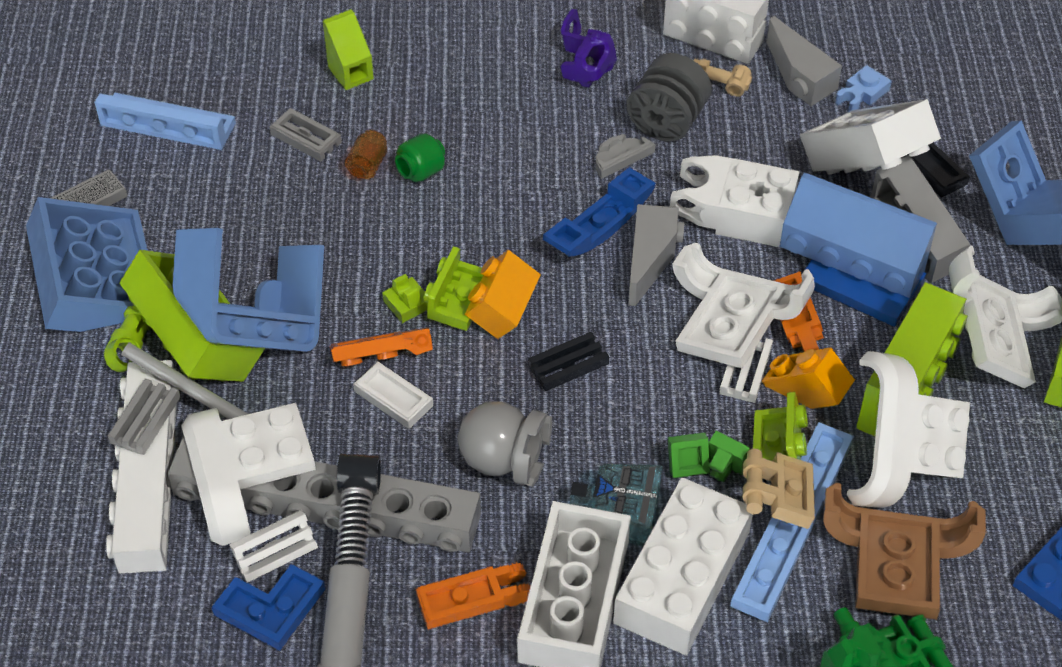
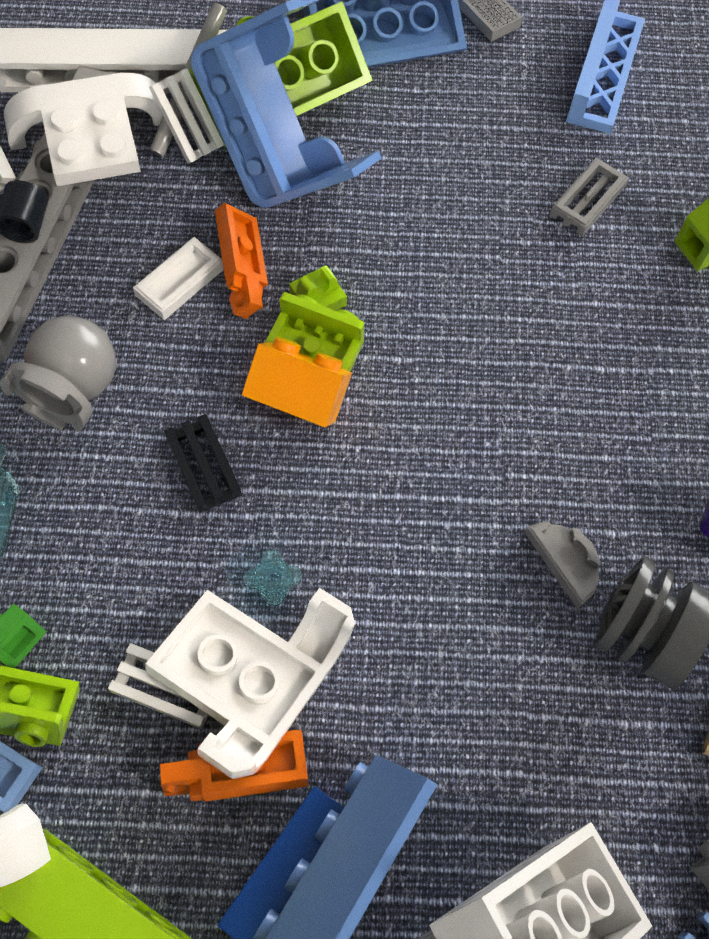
camera: 90 degrees right, 15 degrees up
(138, 414) = (151, 35): light grey tile -> none
(227, 389) = (200, 109): none -> white tile
(366, 154) = (546, 250): clear orange brick -> none
(420, 157) = (539, 305): green head -> none
(603, 217) = (435, 517): blue slope -> none
(653, 246) = (380, 577): light grey slope -> none
(658, 309) = (273, 591): none -> clear light blue plate
(688, 455) = (21, 584): bright green tile -> none
(737, 197) = (472, 695): white brick -> none
(813, 375) = (115, 766): light orange slope -> none

